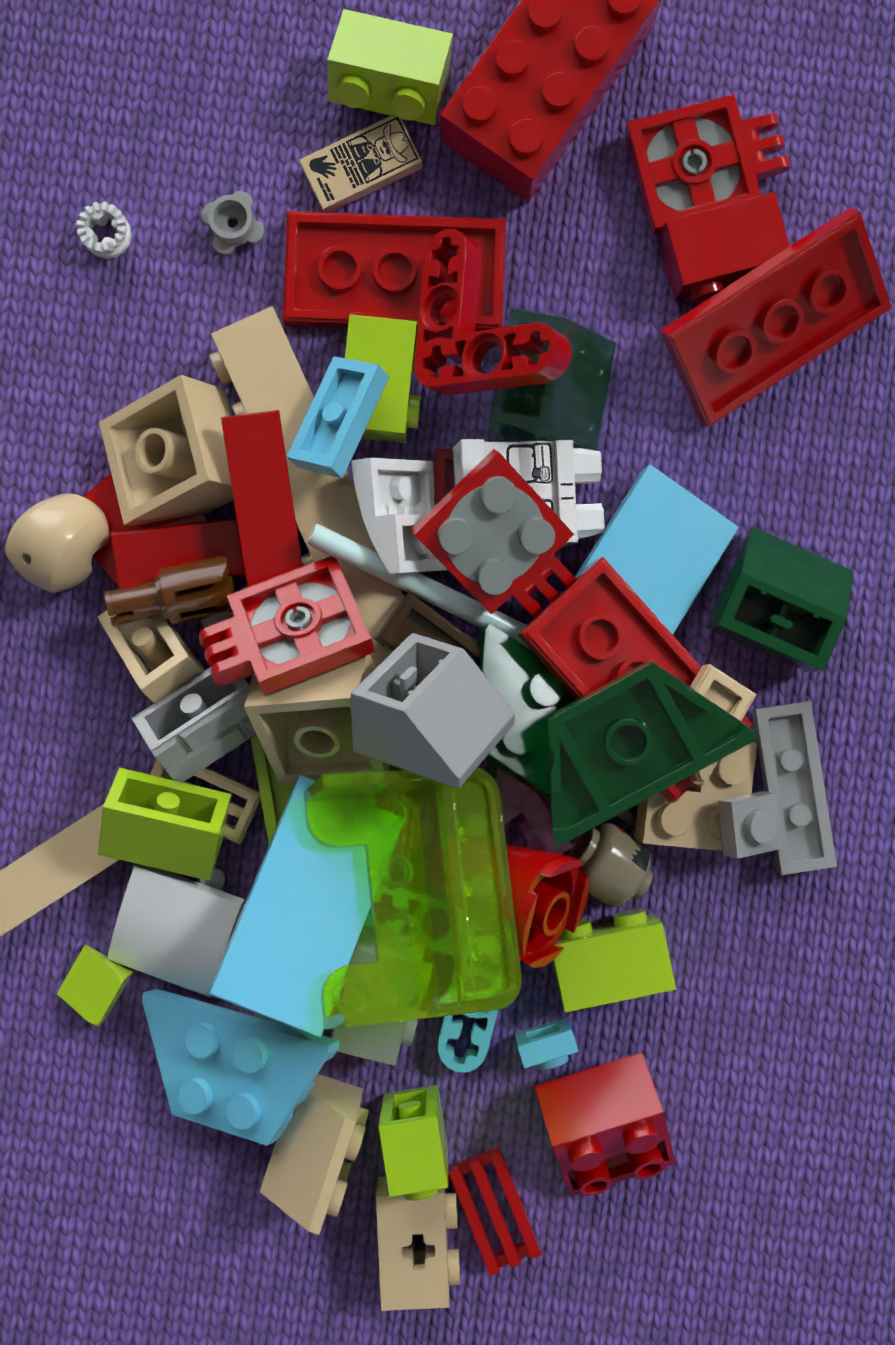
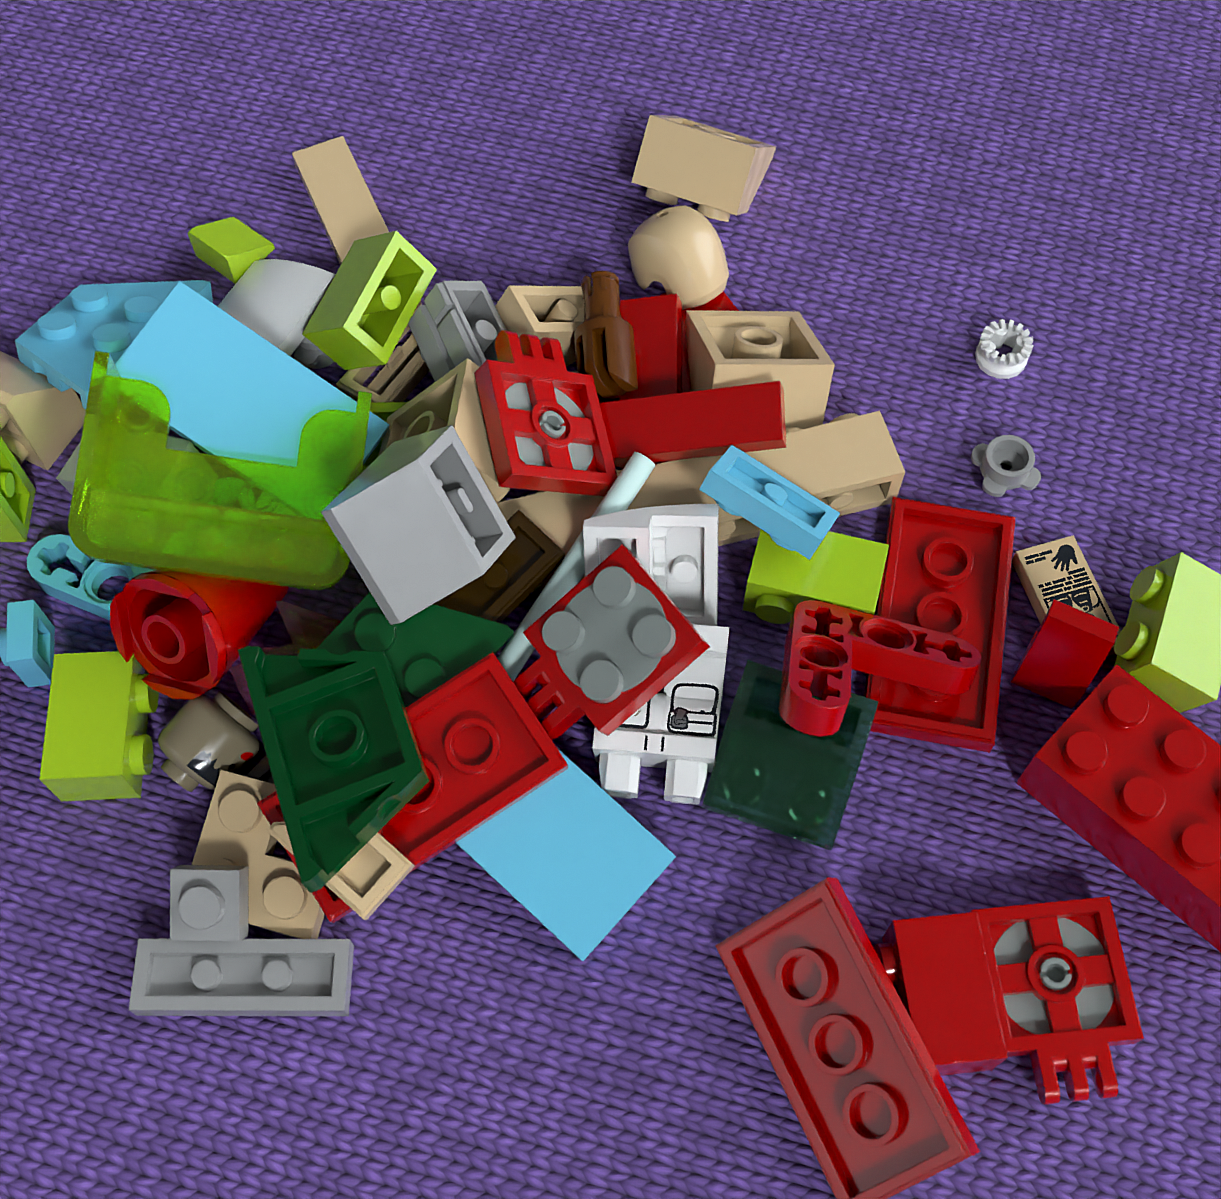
camera: 95 degrees right, 25 degrees down
(435, 156) = (1065, 654): none -> red slope
(784, 602) = (477, 993): dark green slope -> none

